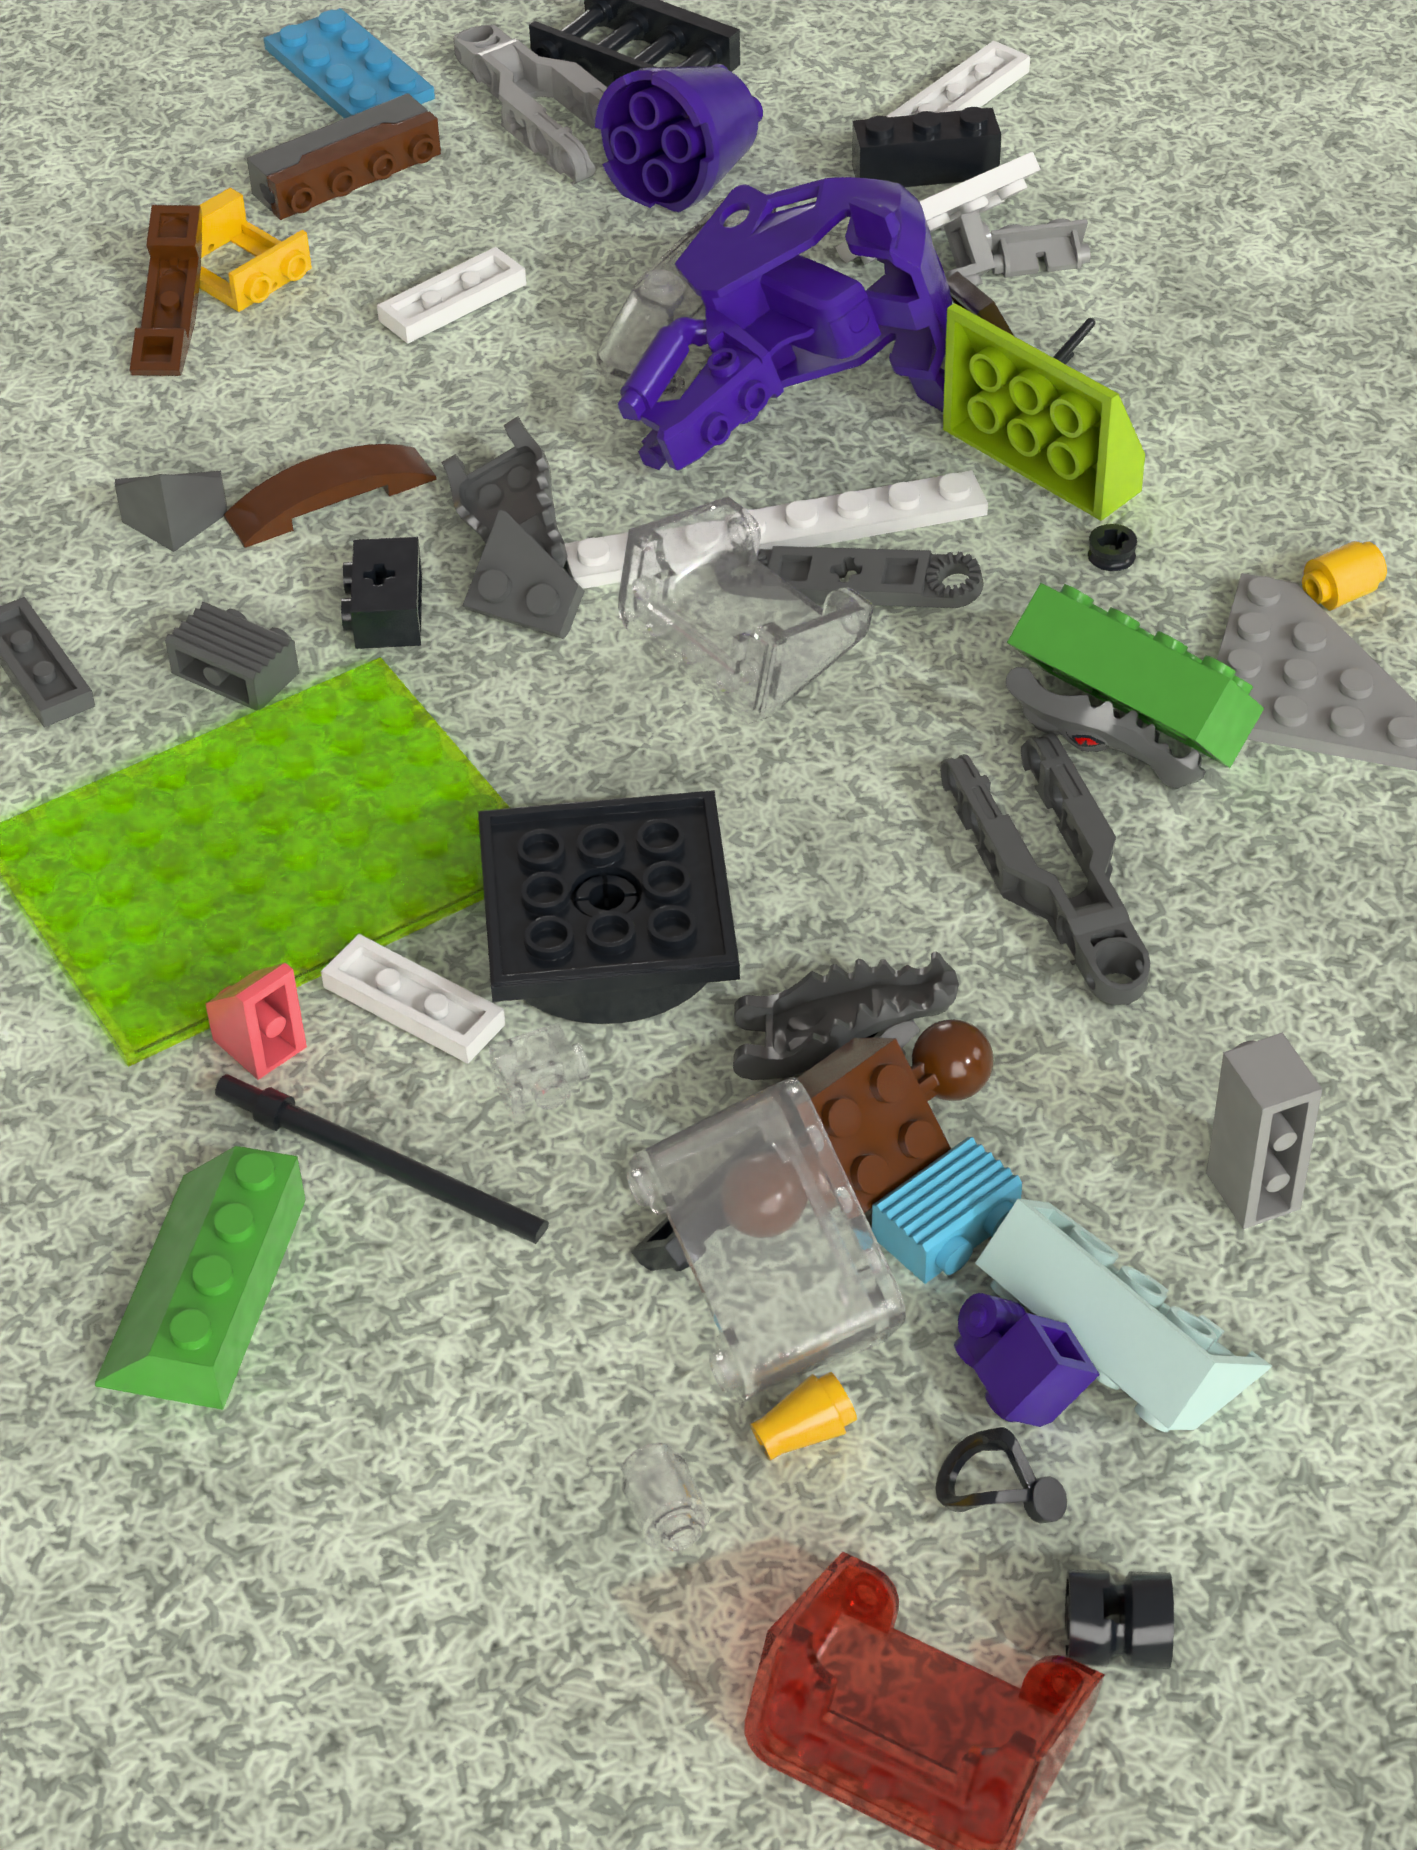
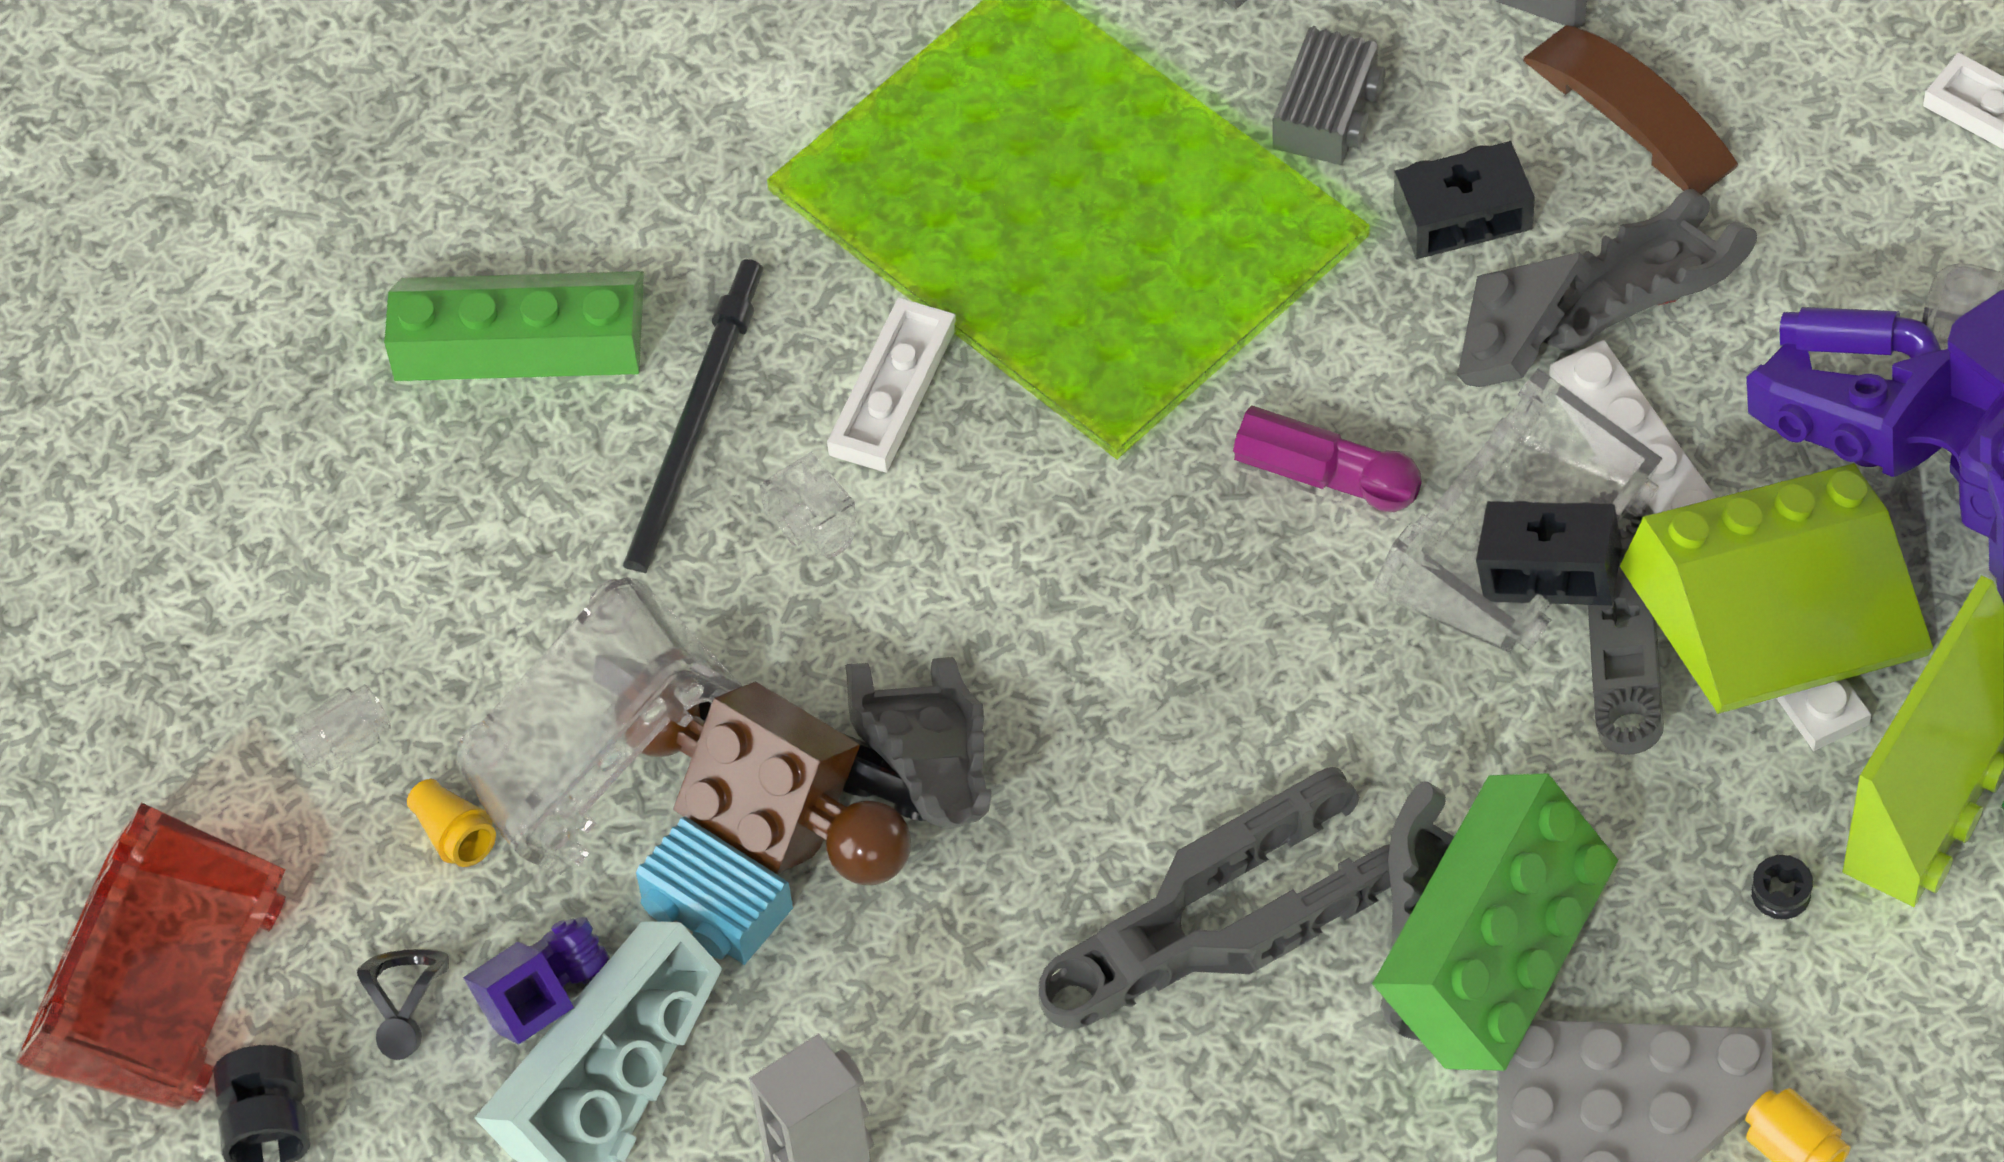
camera: 80 degrees right, 10 degrees up
(259, 1019) = (814, 261): coral slope -> none
(607, 905) = (1039, 447): black piece -> none
(614, 725) = (1324, 459): none -> magenta piece
(786, 577) = (1549, 550): none -> black brick
(857, 473) = (1779, 587): none -> lime slope

